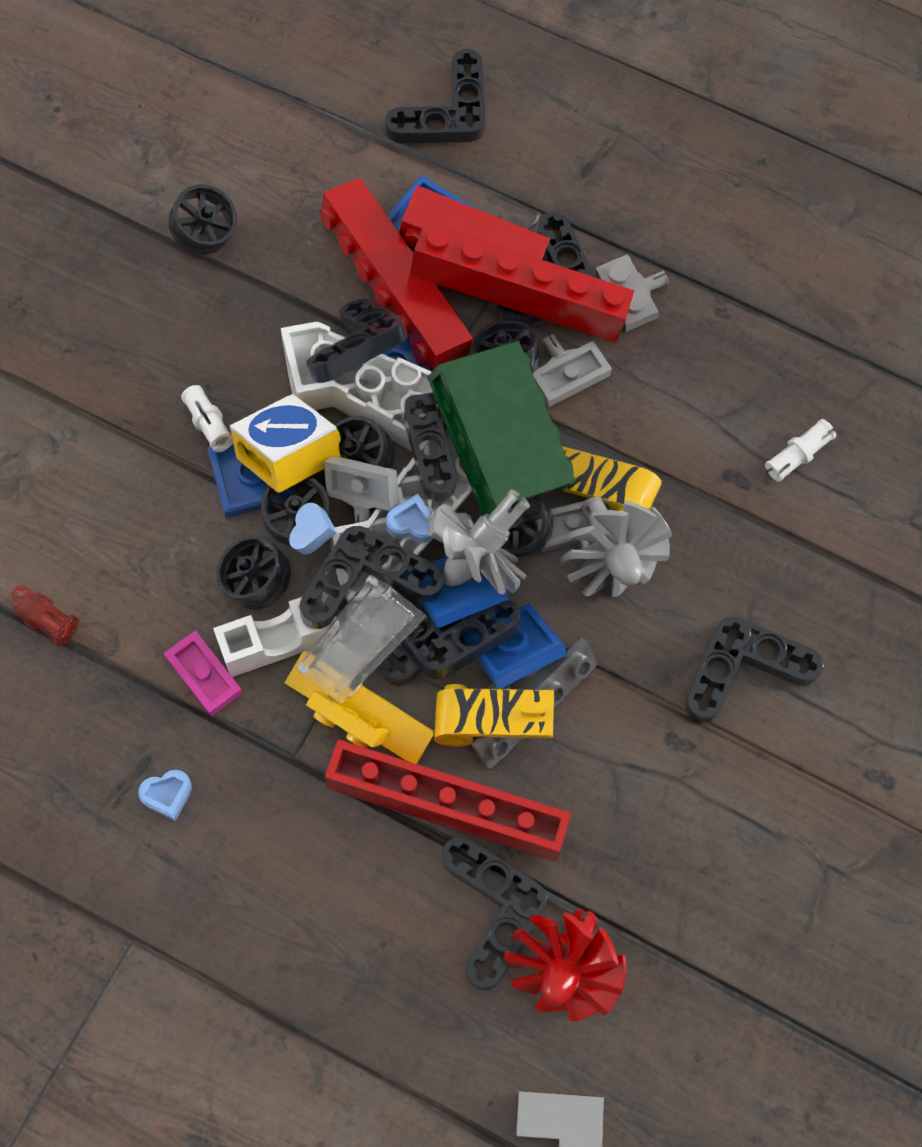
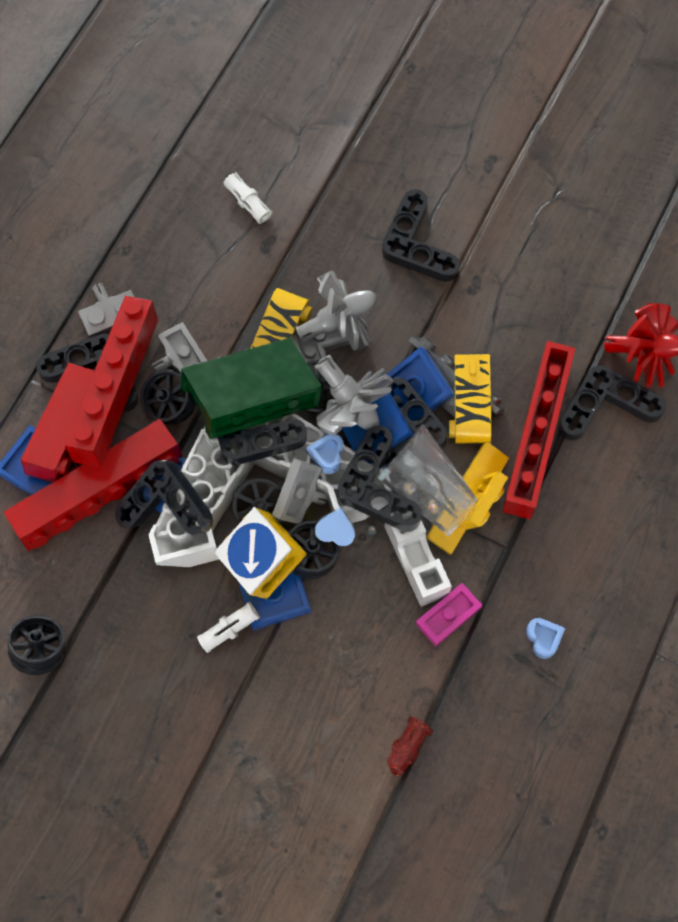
camera: 90 degrees left, 0 degrees up
(252, 571) = (365, 579): black wheel -> none

